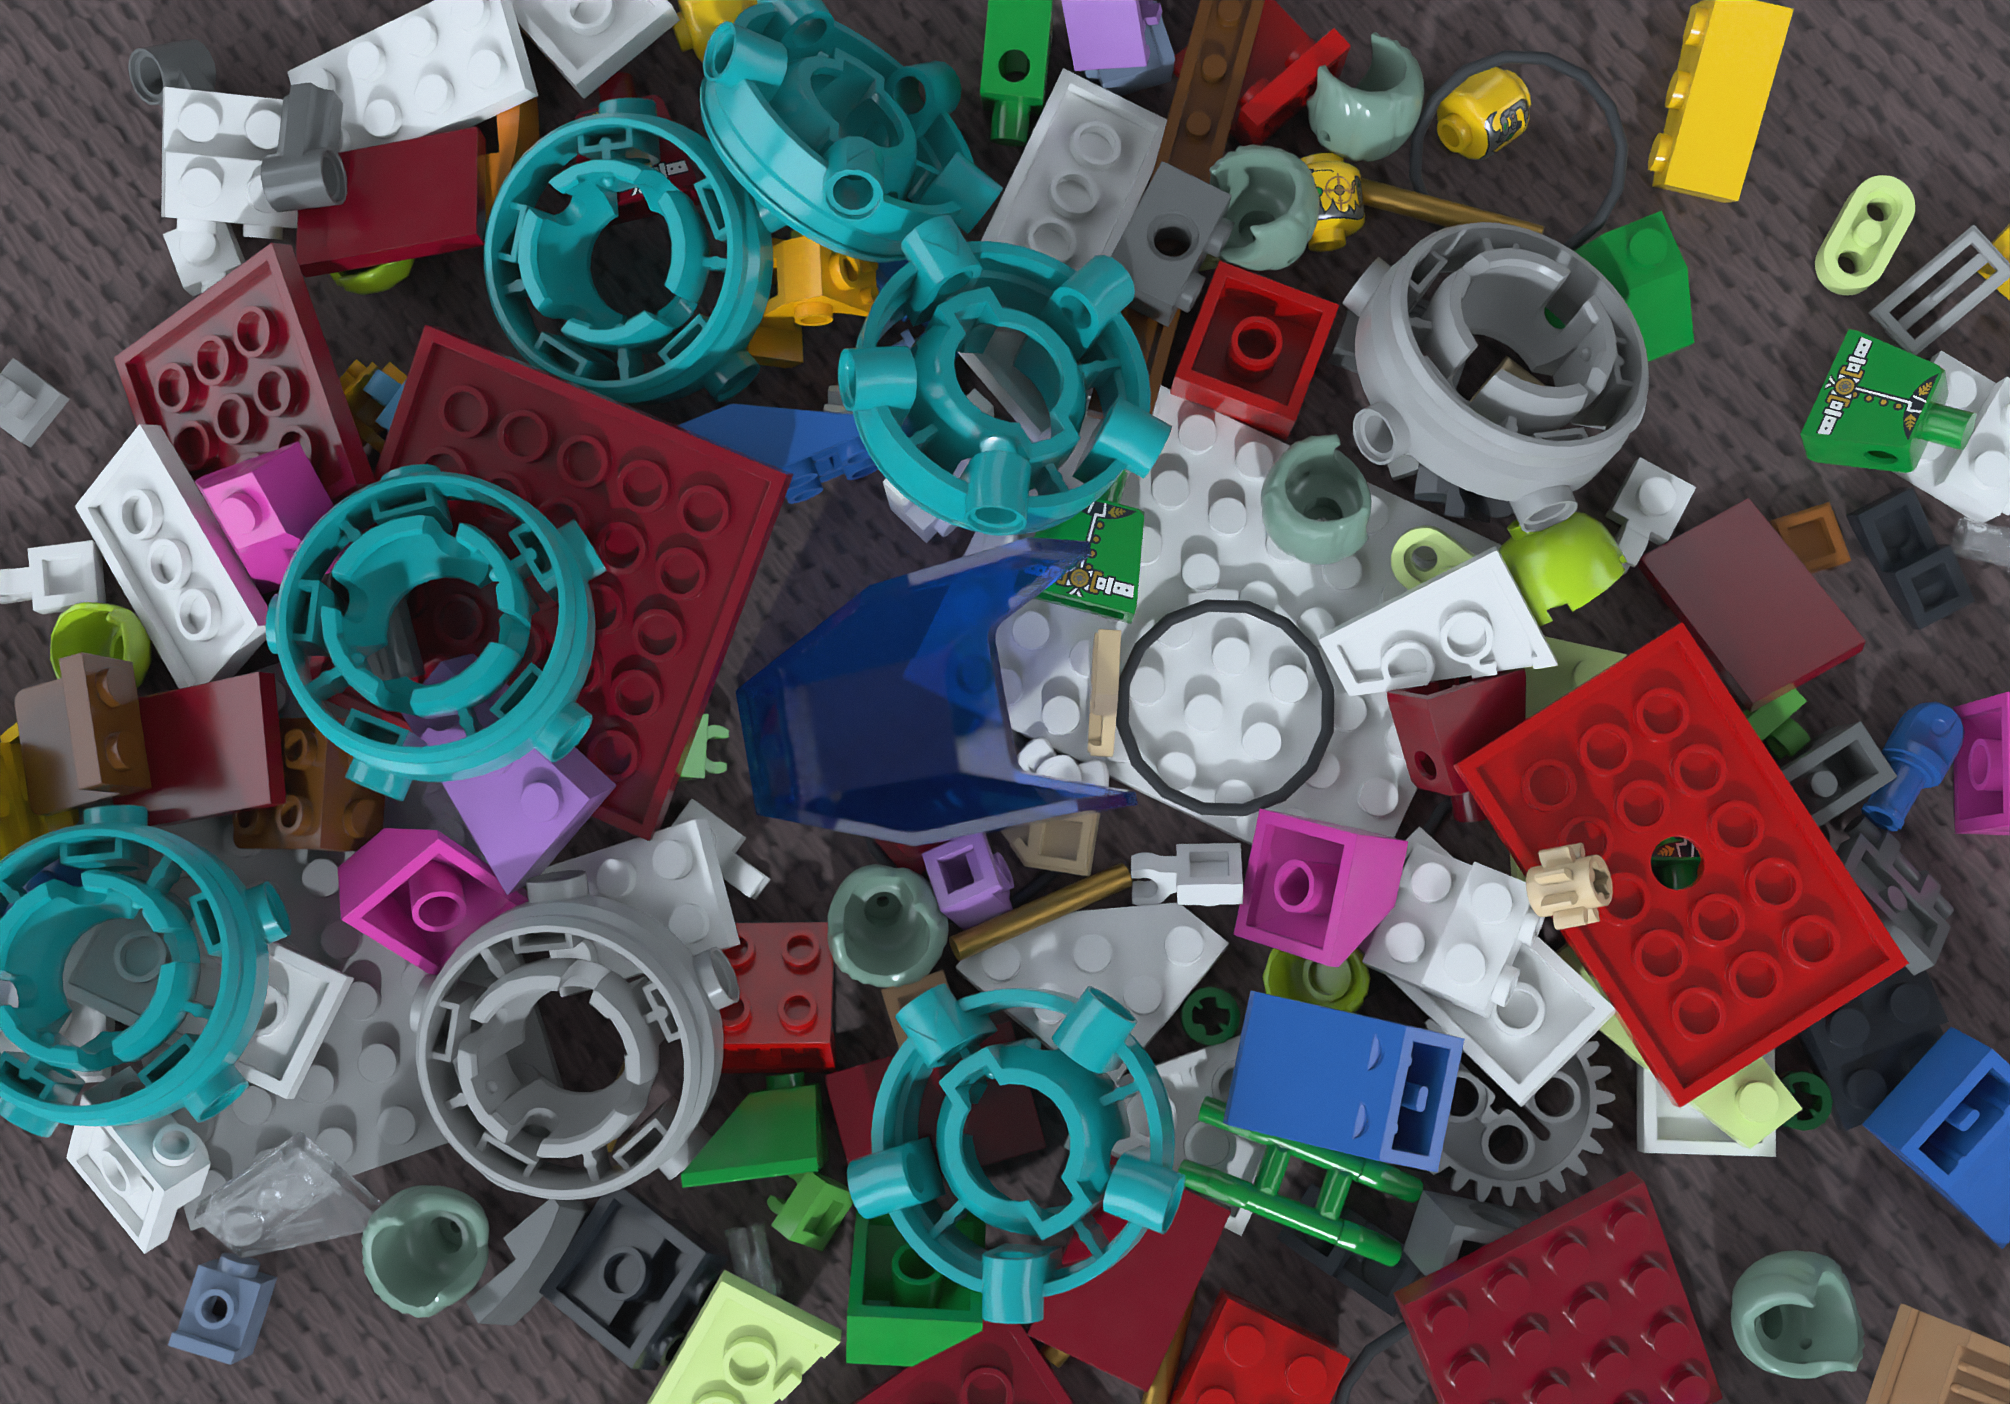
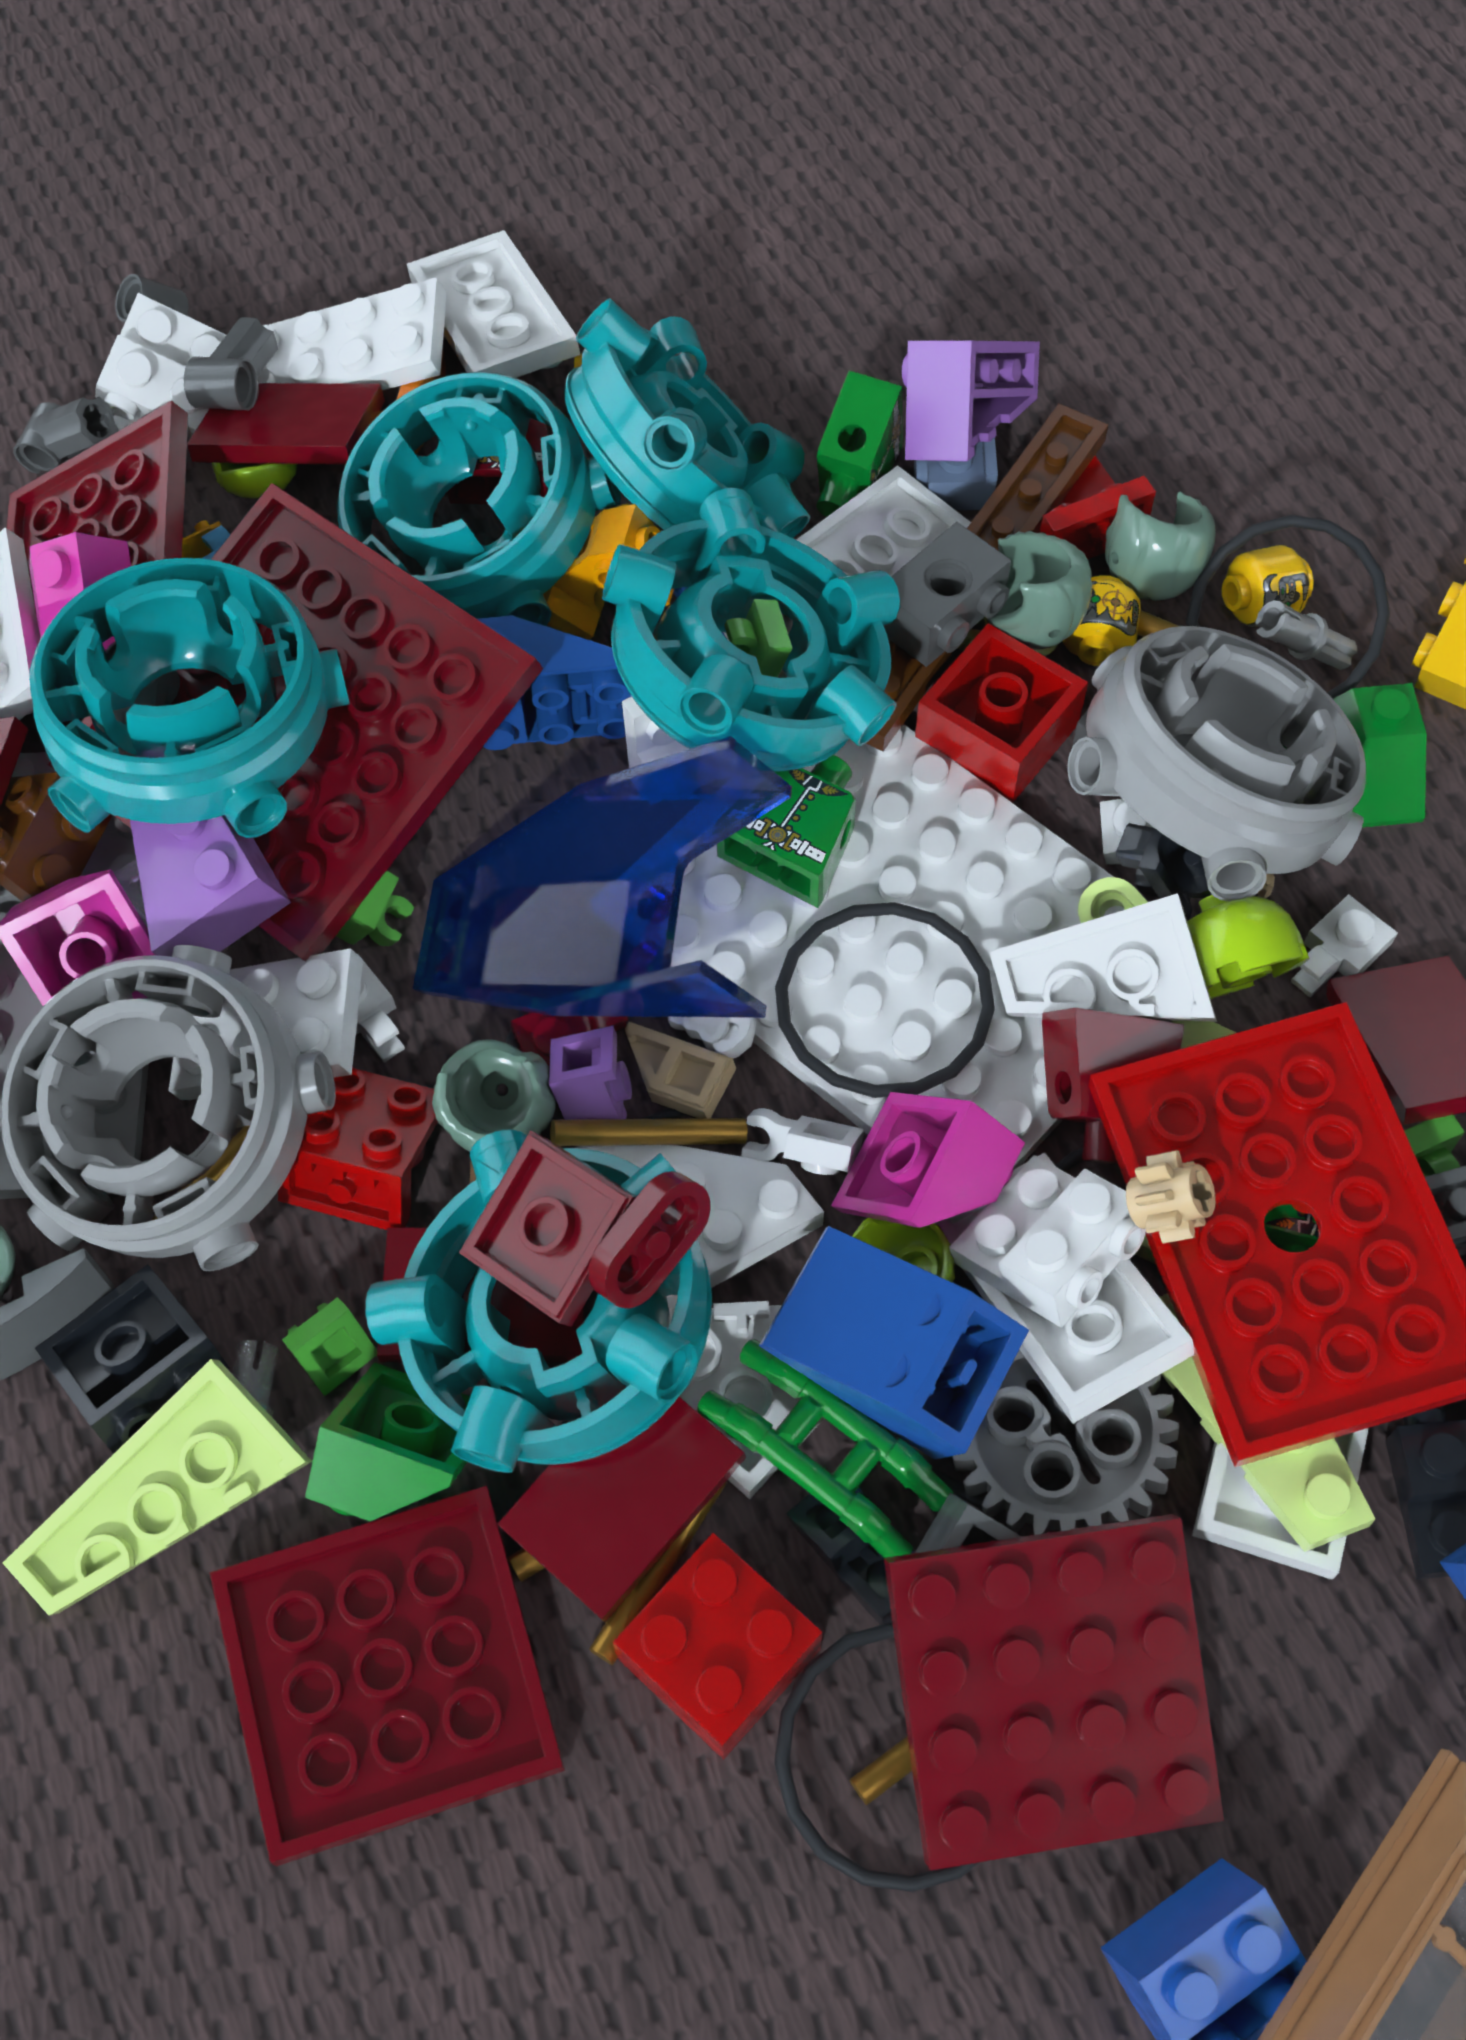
camera: 15 degrees right, 20 degrees down
(141, 271) = (63, 432): none -> dark grey piece
(766, 1136) = (302, 1257): green slope -> none
(1005, 379) = (762, 636): none -> bright green tile
(1008, 1089) = (546, 1227): none -> tile
(1104, 692) = (774, 939): tan tile -> none
(1112, 1091) = (649, 1239): none -> dark red plate
(1221, 1000) = (772, 1261): dark green bush -> none
(1316, 502) = (1019, 830): sand green piece -> none
(1538, 172) = (1305, 635): none -> light grey axle
(1807, 1318) = (1337, 1738): sand green piece -> none
(1821, 1098) = (1396, 1522): dark green bush -> none

